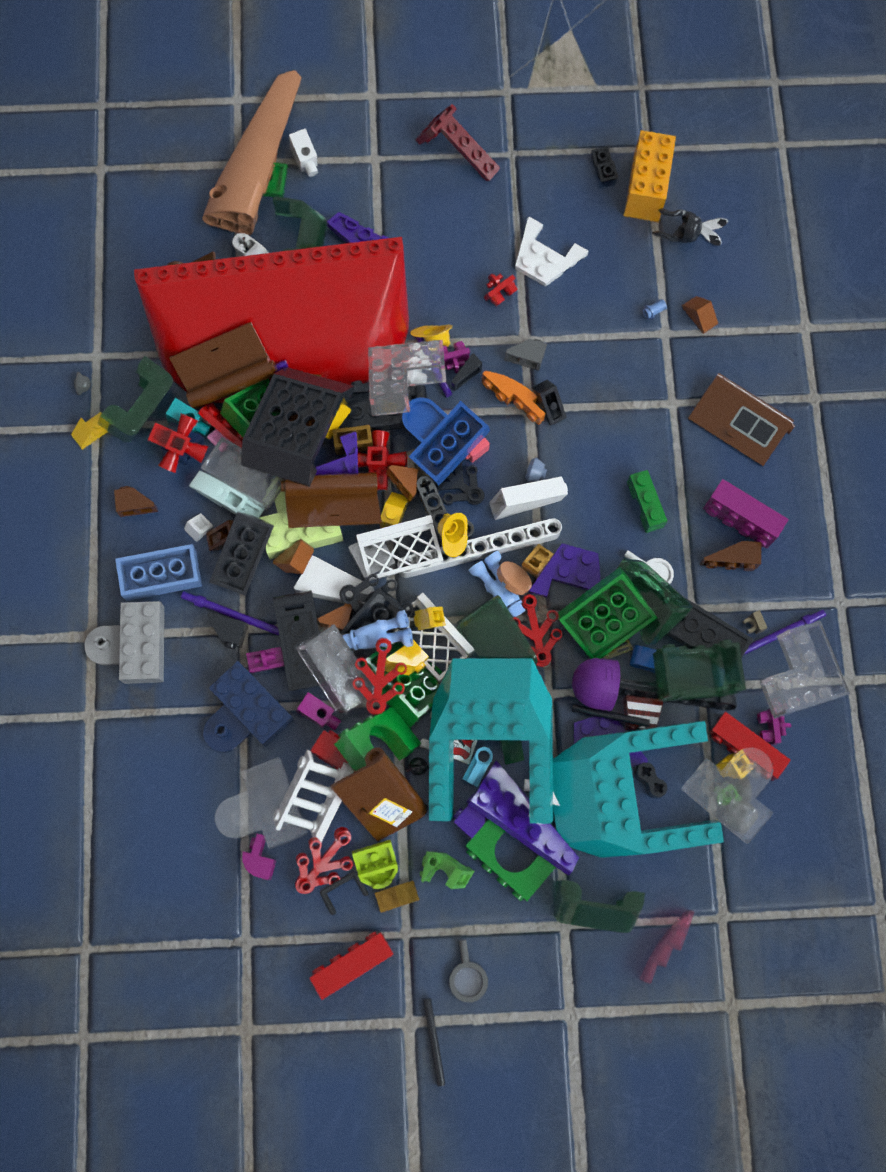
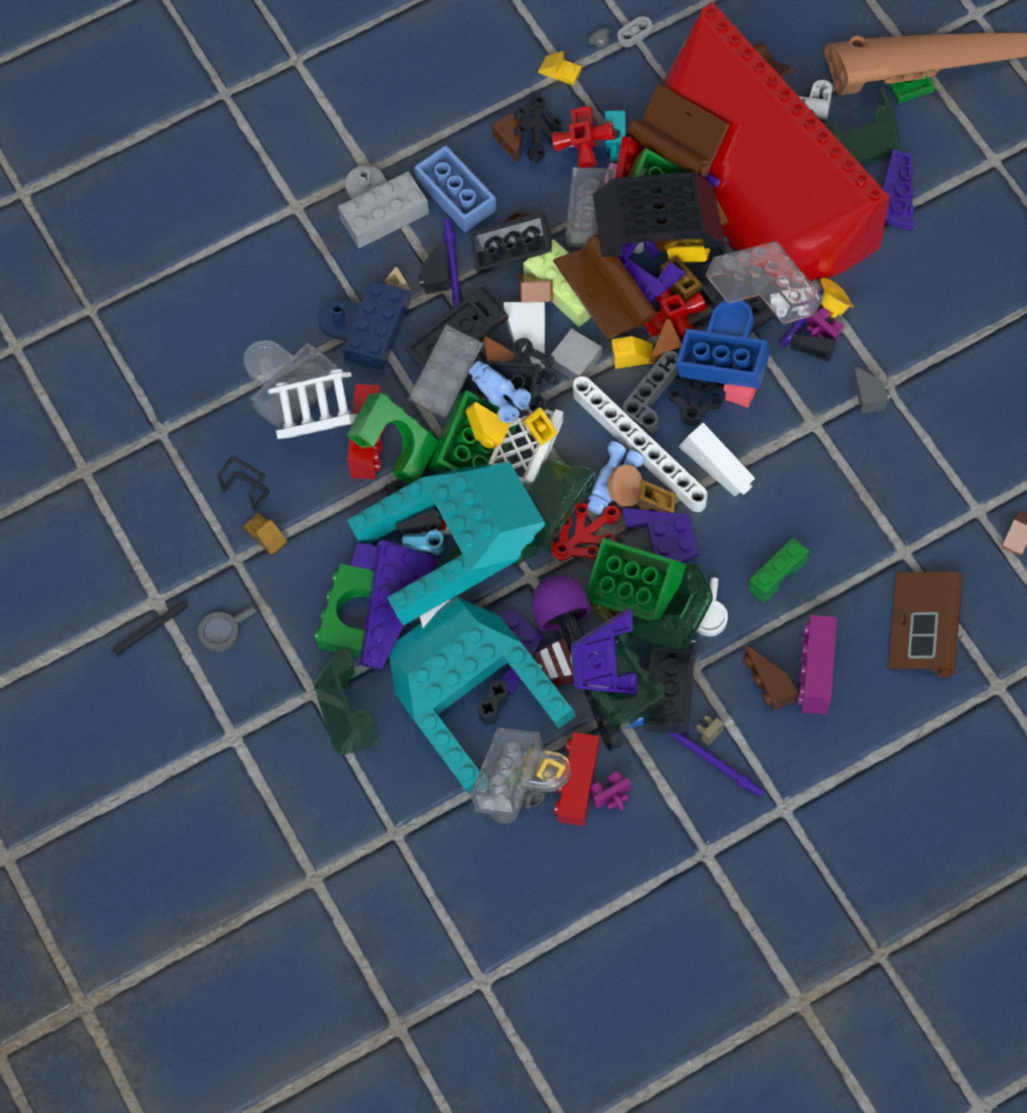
camera: 70 degrees right, 10 degrees down
(93, 355) = (633, 31): none -> light grey plate
(117, 465) = (537, 105): none -> black plant
(128, 424) = (604, 93): clear green windscreen -> none
(198, 527) = (519, 200): white slope -> none
(217, 666) = (396, 279): none -> tan slope
(224, 495) = (559, 205): light aqua slope -> none
(255, 863) = (233, 401): magenta brick -> none
(265, 660) = (422, 313): magenta hips -> none
(303, 152) = (953, 93): white torso -> none
(309, 708) = (398, 378): magenta torso -> none
(322, 864) = (259, 451): red plant -> none
(352, 965) = (183, 524): red brick -> none
(376, 864) = (285, 501): lime slope -> none
(379, 679) = (453, 407): red plant -> none
(383, 794) = (344, 461): reddish brown door -> none
(392, 533) = (608, 359): white fence -> none
(453, 533) = (632, 405): yellow piece -> none
(457, 873) = (310, 554): bright green tile -> none
(461, 756) = (422, 522): none -> black slope
(508, 286) = (914, 331): red hips -> none
(511, 390) = (818, 398): orange slope -> none
(535, 471) = (749, 454): sand blue cone -> none
(542, 262) = (981, 357): white wing -> none
(549, 401) = (829, 434): black slope -> none
(611, 715) = (536, 635): black bar -> none
(650, 311) = (996, 485): medium blue pin -> none
(671, 940) = (349, 791): clear pink slope -> none
(686, 681) = (596, 660): none -> dark purple wing
(812, 675) = (676, 803): clear piece -> none

